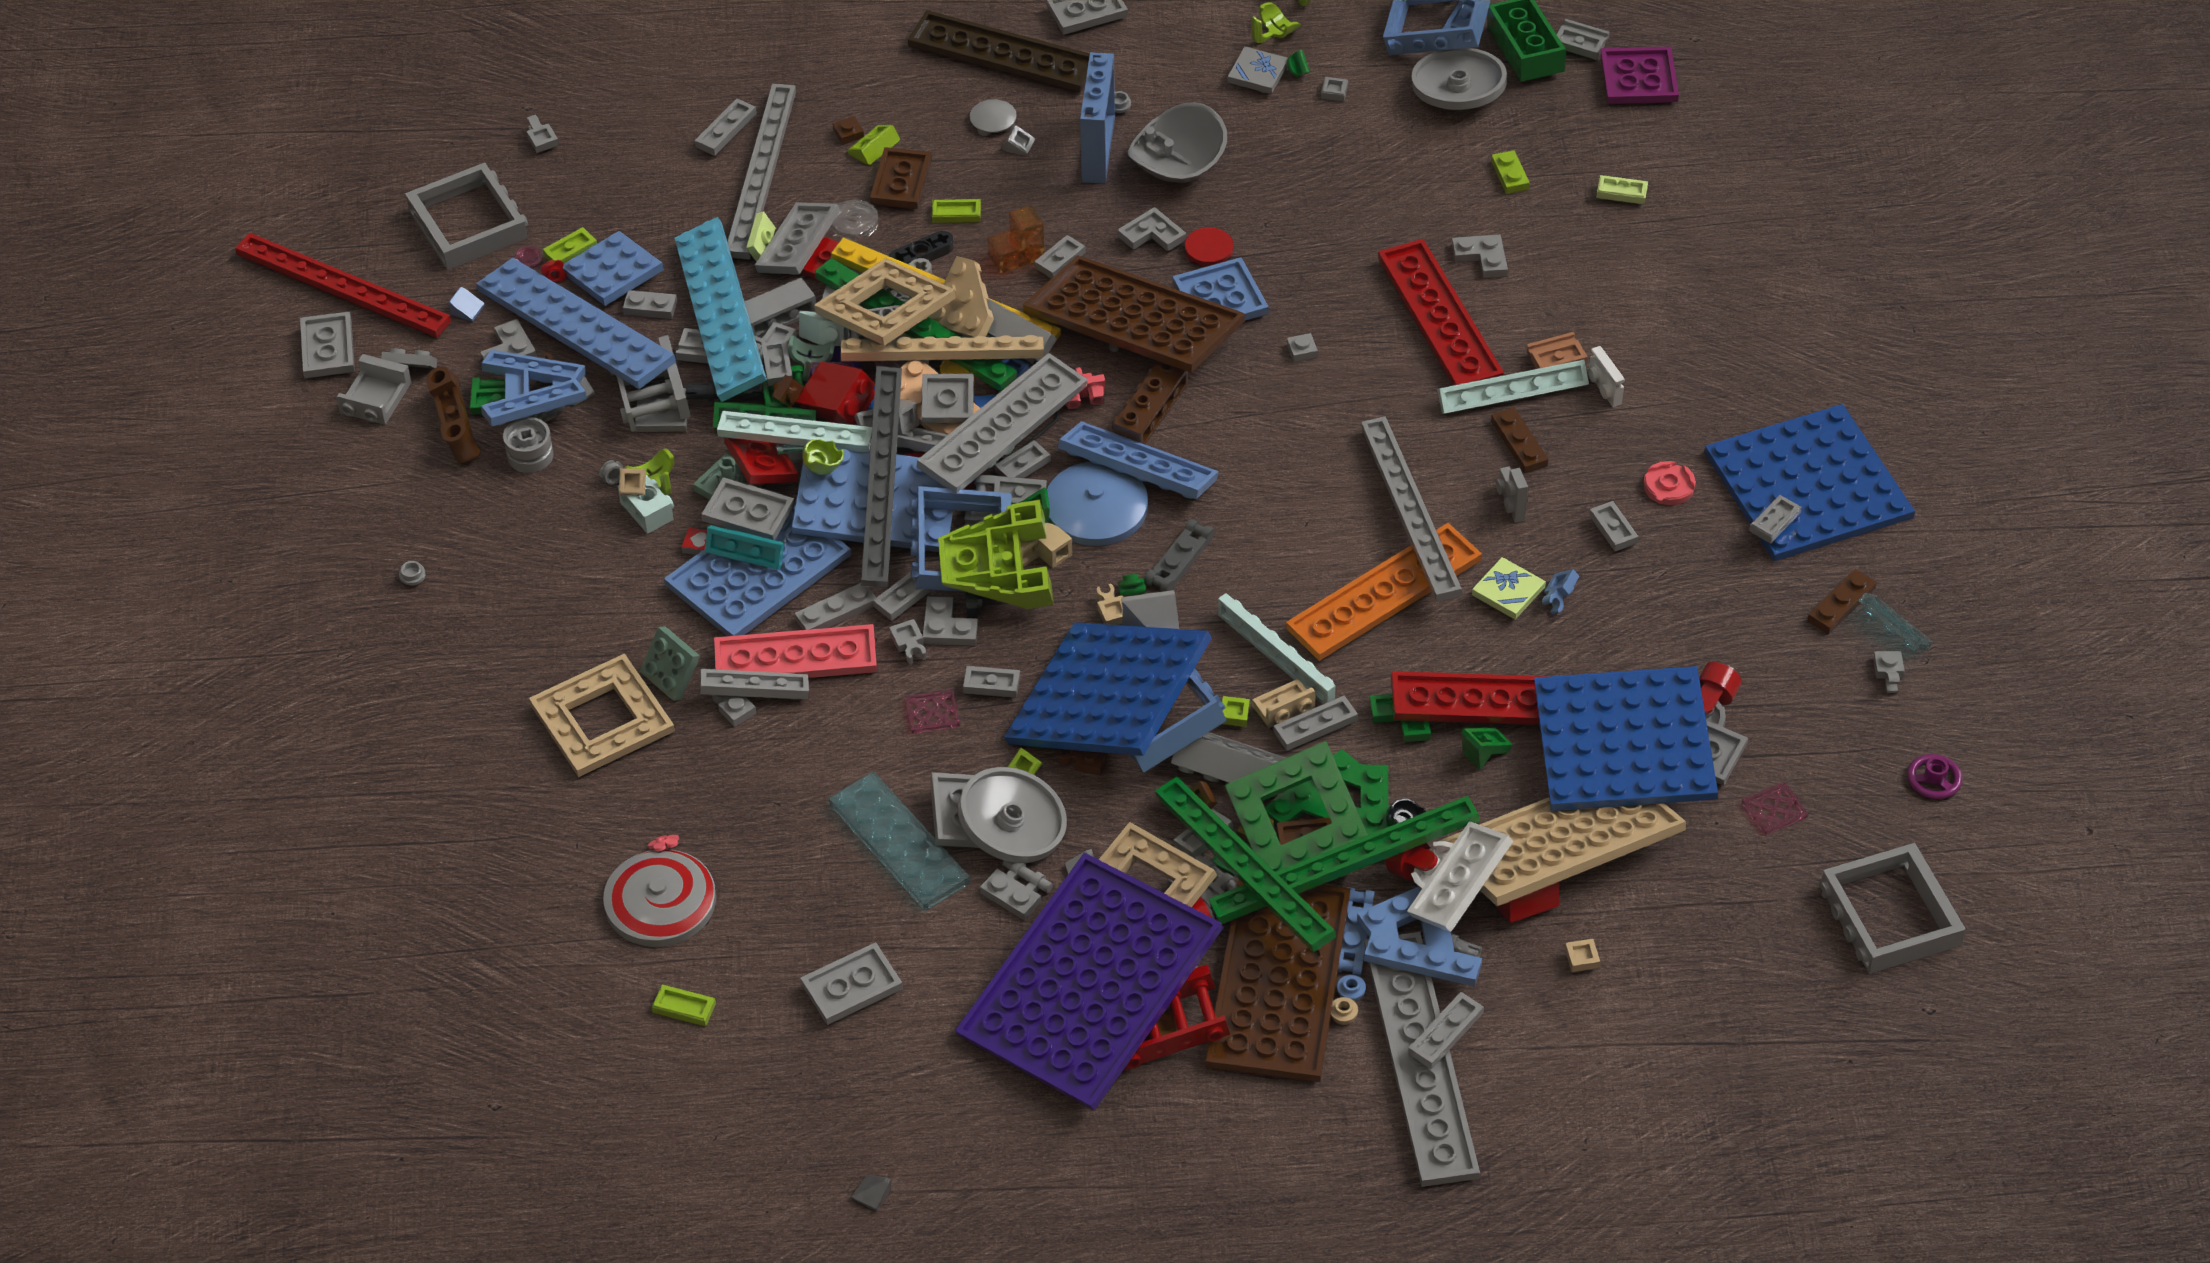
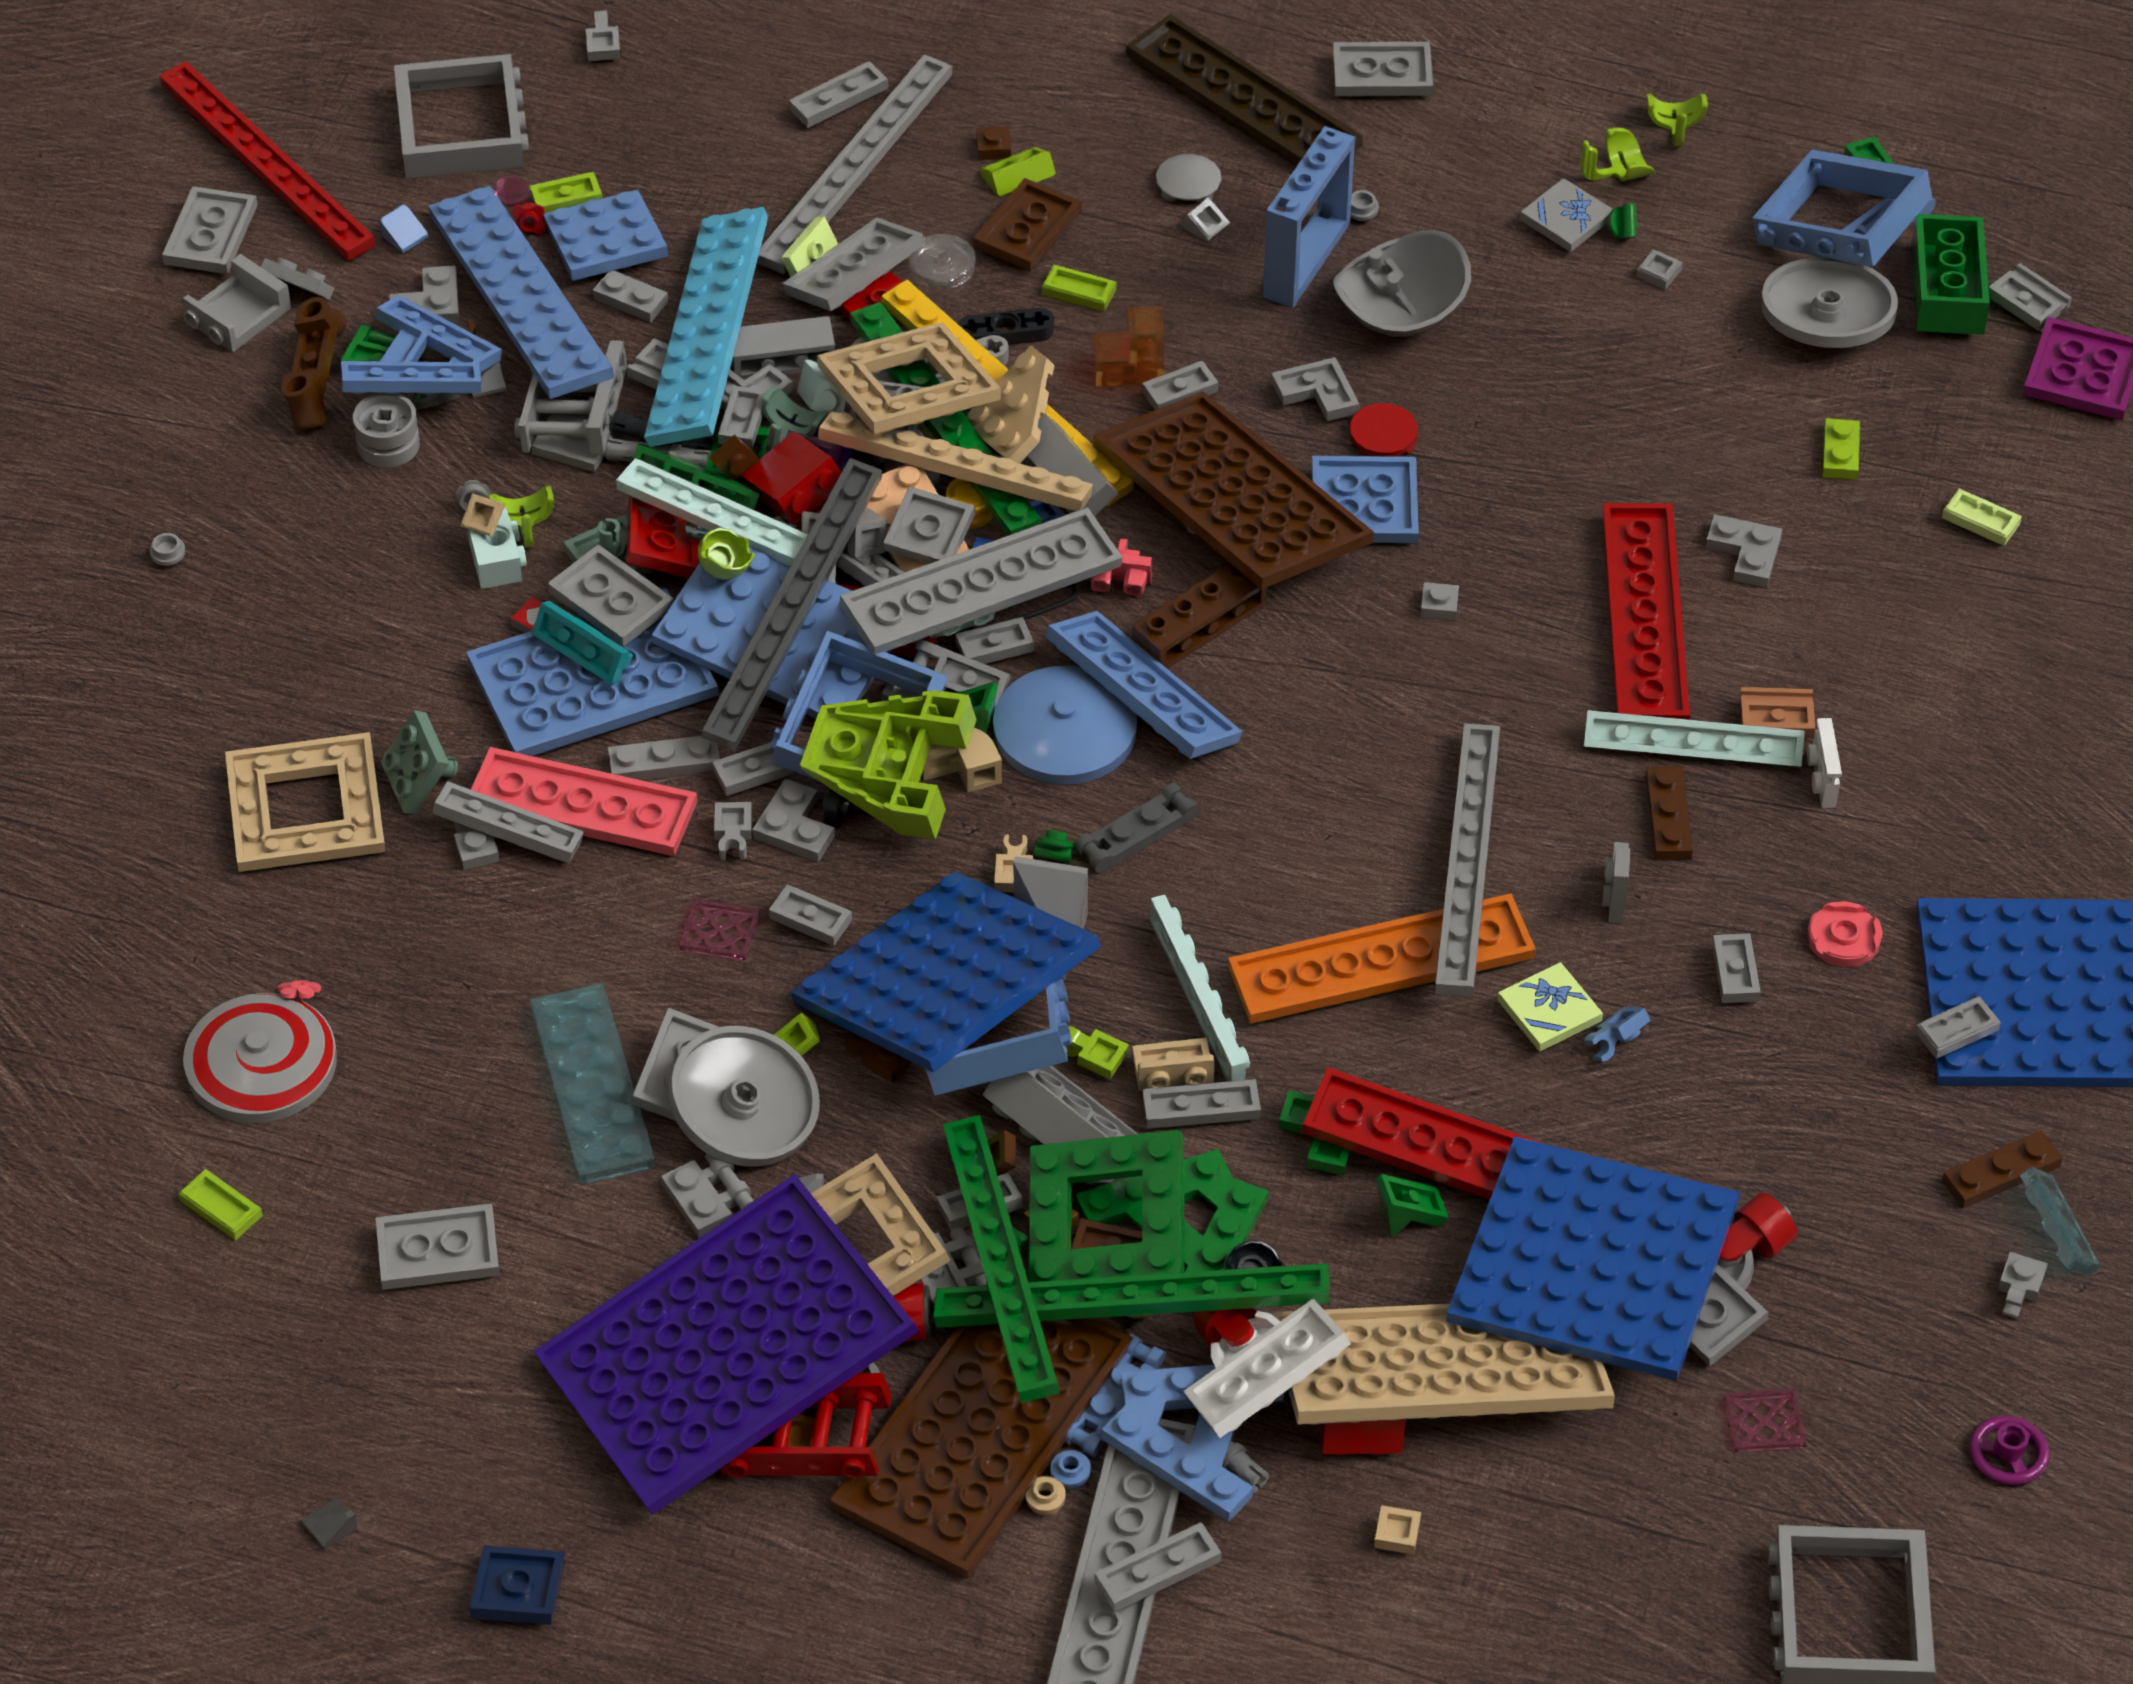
camera: 20 degrees right, 0 degrees up
(706, 409) = (625, 450): none -> light grey pin
(1023, 1188) = (517, 1585): none -> dark blue plate

